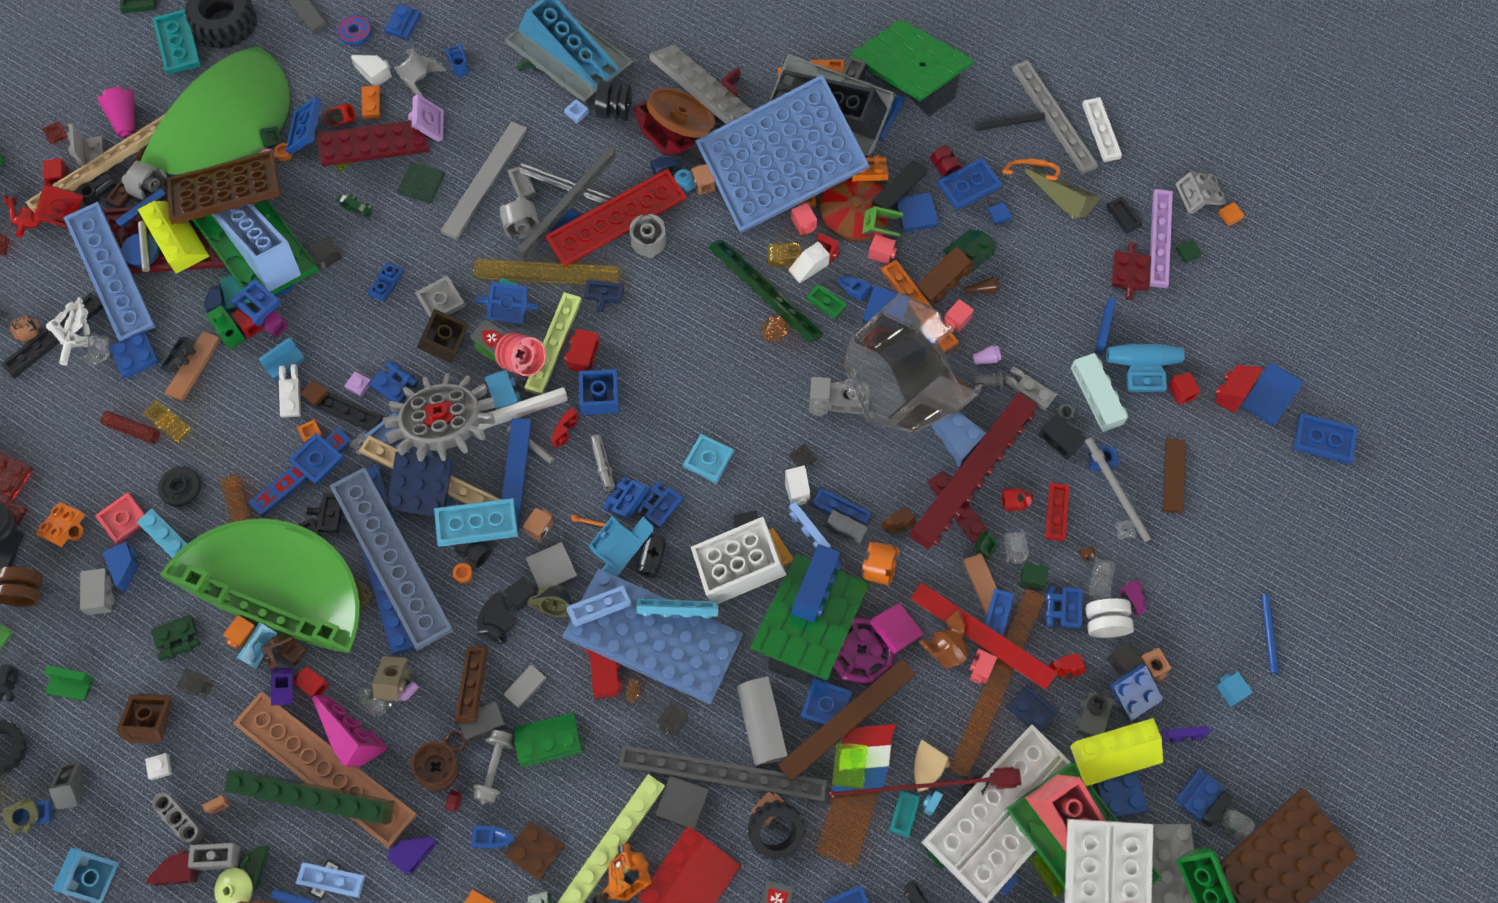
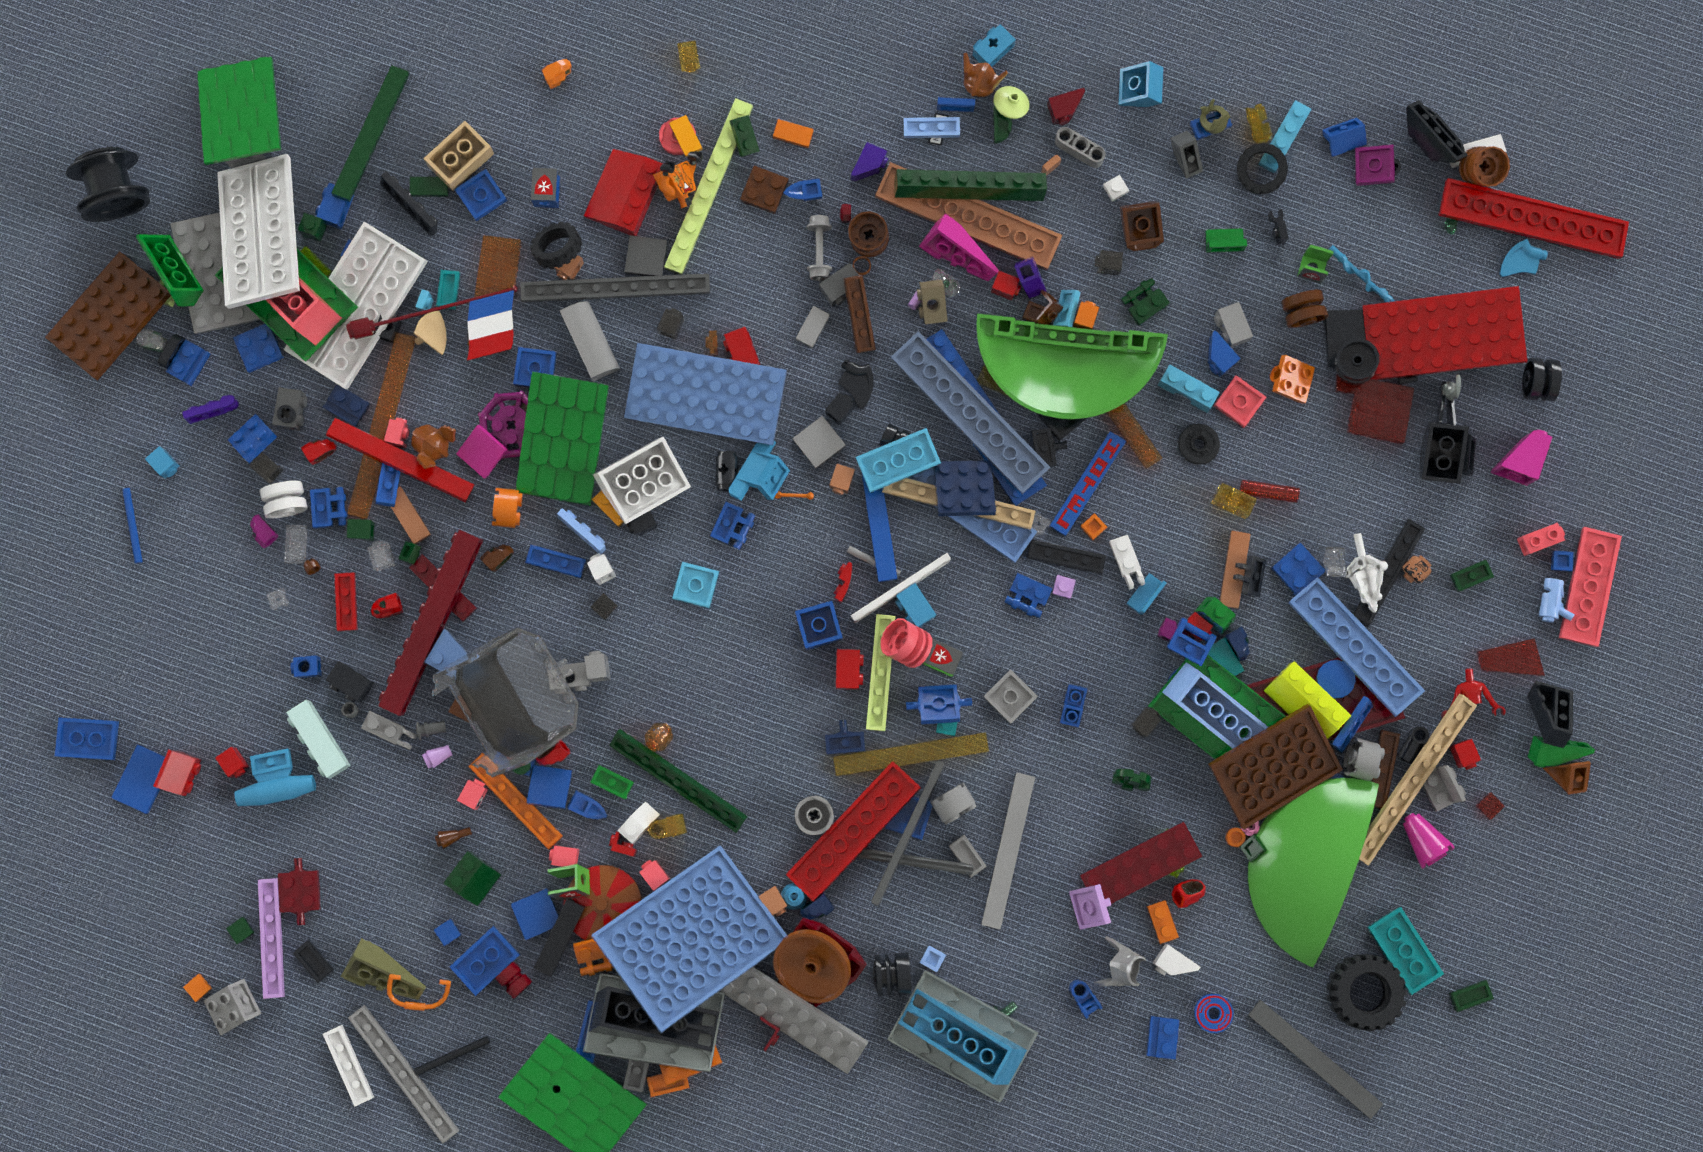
camera: 165 degrees right, 15 degrees up
(56, 204) = (1439, 706): red plate -> none
(143, 246) = (1331, 680): light grey bar -> none
(214, 856) = (1035, 121): light grey brick -> none
(303, 125) = (1220, 866): blue plate -> none
(314, 393) = (1101, 563): reddish brown tile -> none
(316, 459) = (1074, 494): blue plate -> none
(420, 182) = (1075, 832): clear green tile -> none
(439, 417) = (962, 569): light grey gear -> none
(442, 336) = (992, 650): dark brown brick -> none
(462, 573) = (901, 419): orange tile -> none
(547, 740) = (778, 283): green slope -> none
(552, 600) = (805, 409): olive hat -> none
(598, 606) = (759, 401): light blue plate -> none
(604, 469) = (797, 555): light grey pin -> none
(630, 498) = (760, 521): blue plate -> none
(685, 608) = (687, 419): medium azure plate -> none
(815, 583) = (562, 469): blue brick -> none
(846, 720) = (511, 355): reddish brown tile -> none
(847, 525) = (546, 542): tile -> none
(850, 765) = (501, 312): clear neon green plate -> none
(946, 275) = (491, 833): reddish brown brick -> none
(1098, 456) = (309, 658): light grey bar -> none
(1105, 325) = (319, 817): blue tile -> none
(1118, 752) = (263, 375): neon yellow slope -> none
(1156, 656) = (245, 472): nougat brick -> none
(1174, 476) = (235, 667): reddish brown tile -> none

